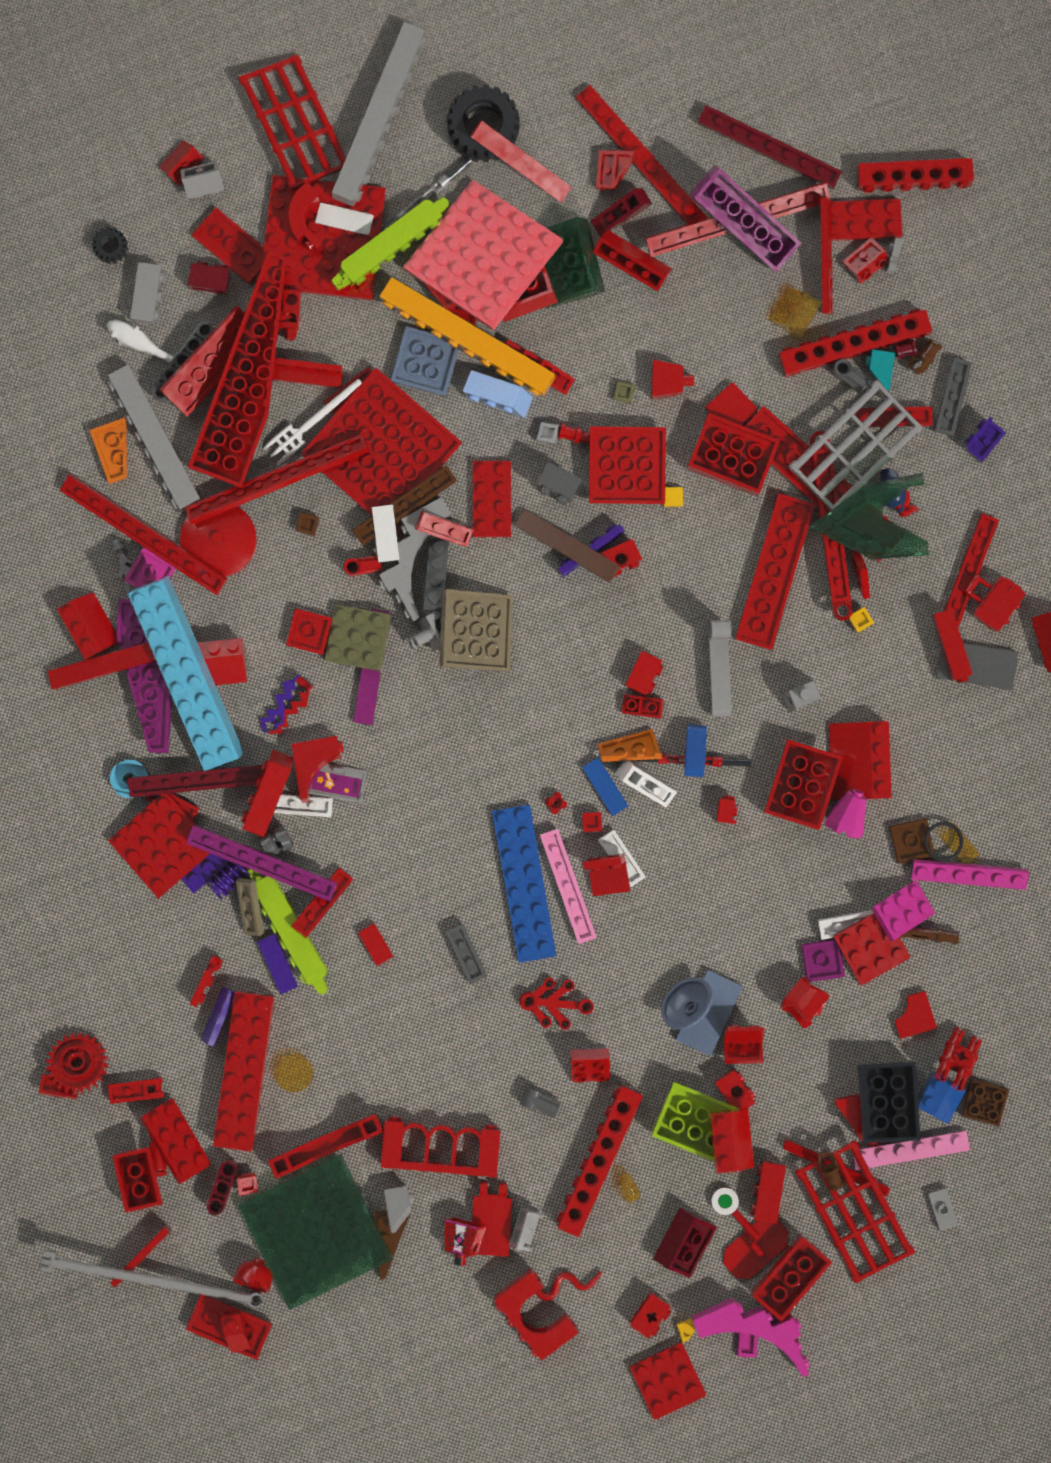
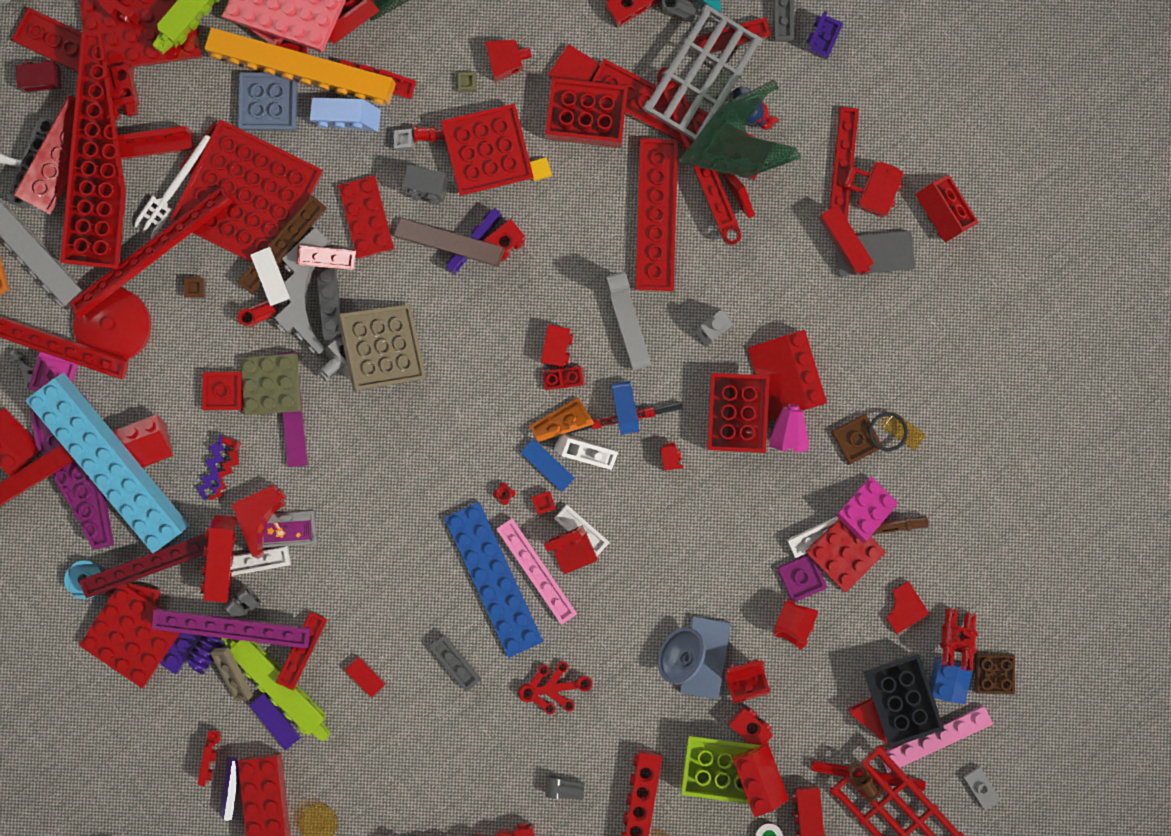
camera: 10 degrees left, 0 degrees up
(590, 1065) = (603, 739): red bracket -> none
(861, 620) = (751, 239): yellow plate -> none
(969, 874) = (921, 457): dark pink plate -> none

